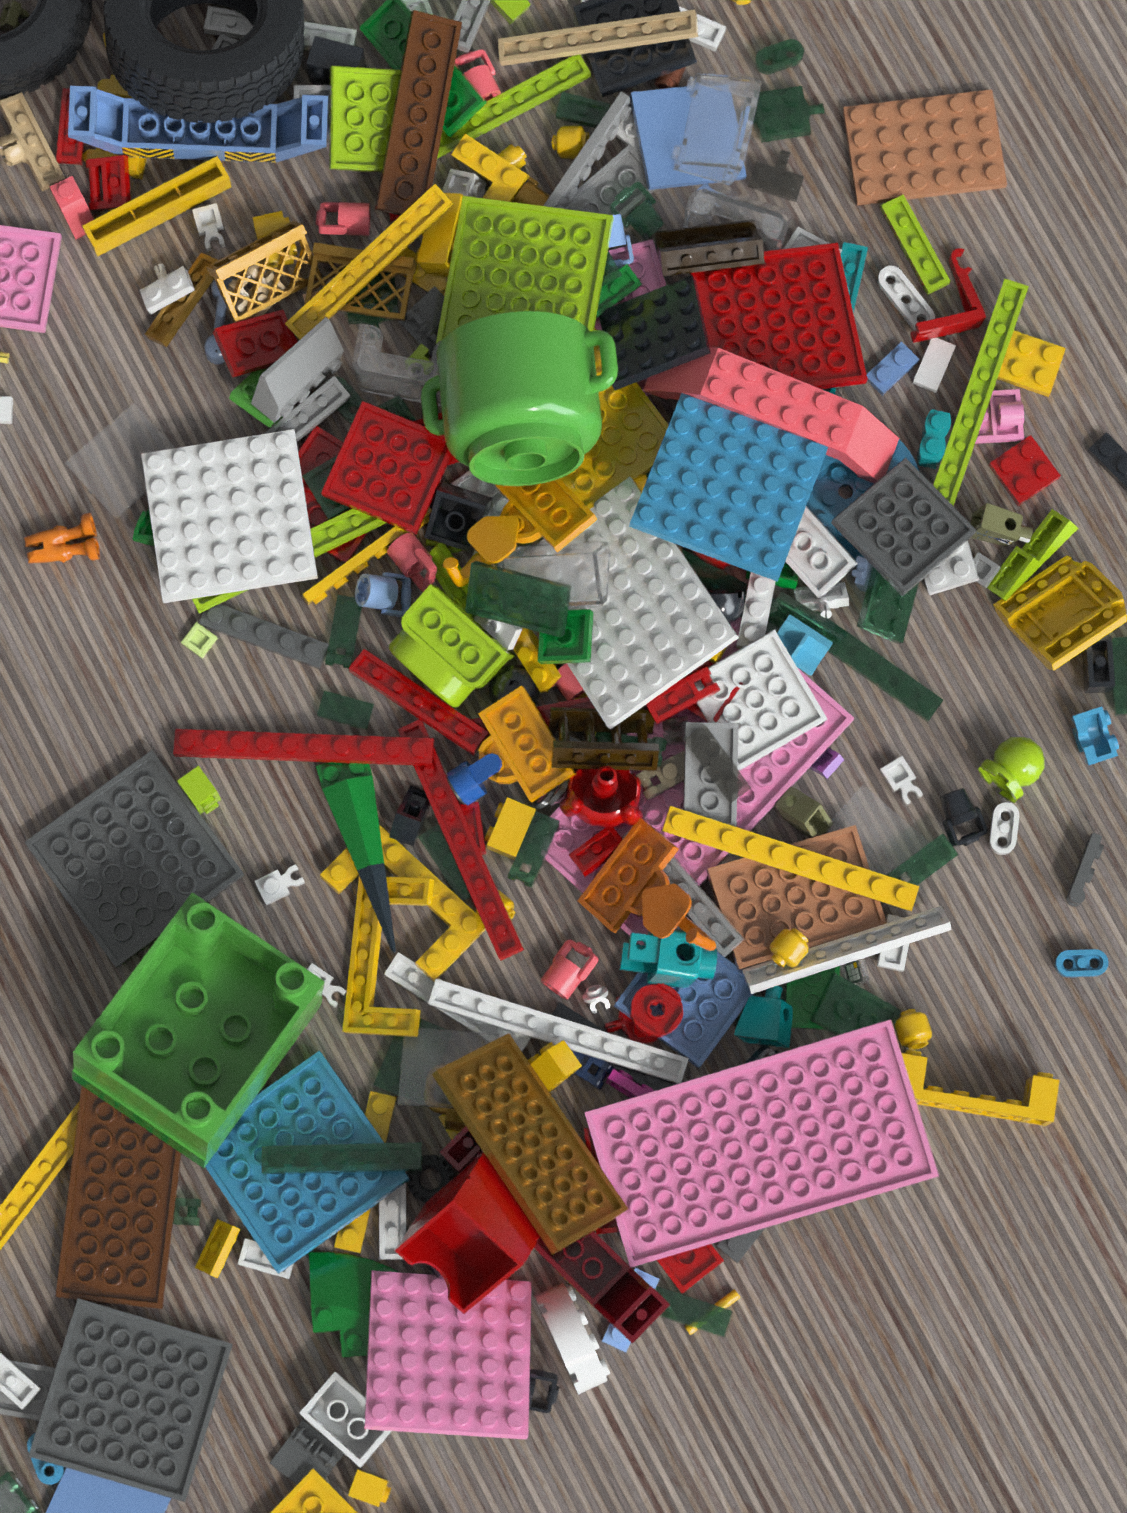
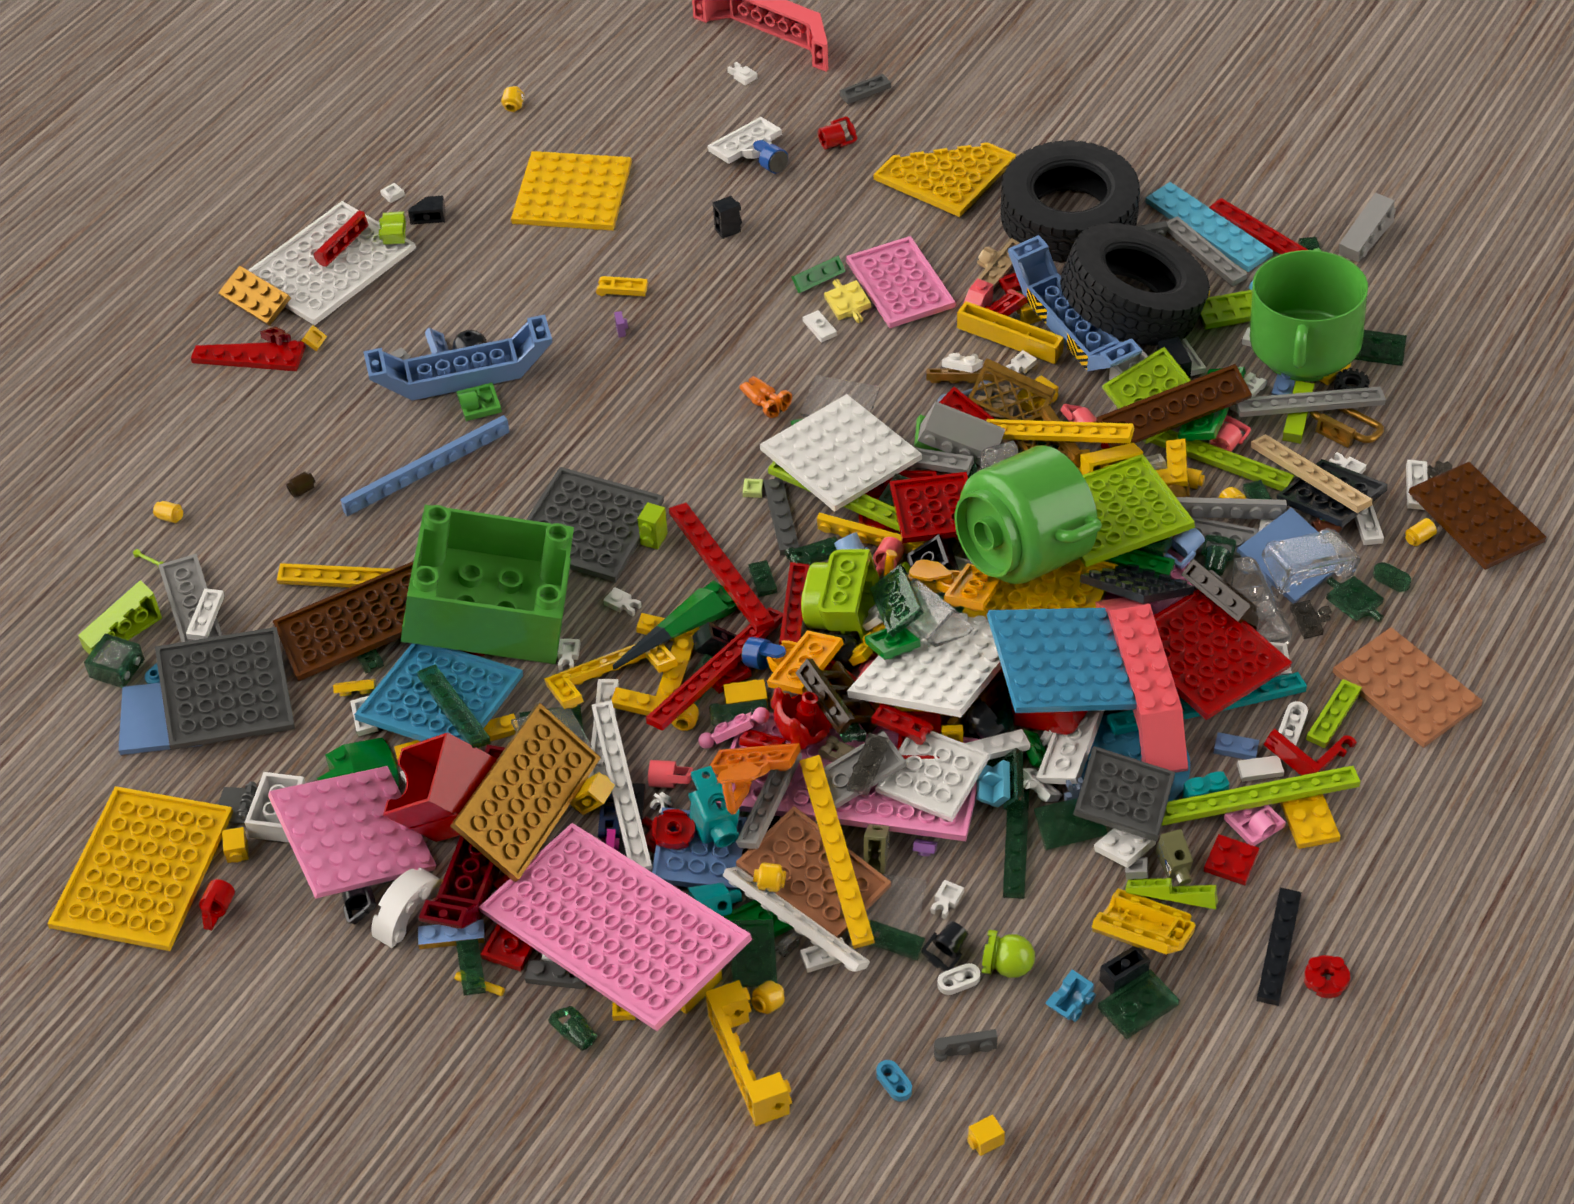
camera: 65 degrees right, 30 degrees down
(555, 868) = (728, 730): none -> bright pink plate
(837, 1244) = (574, 1029): none -> clear green piece

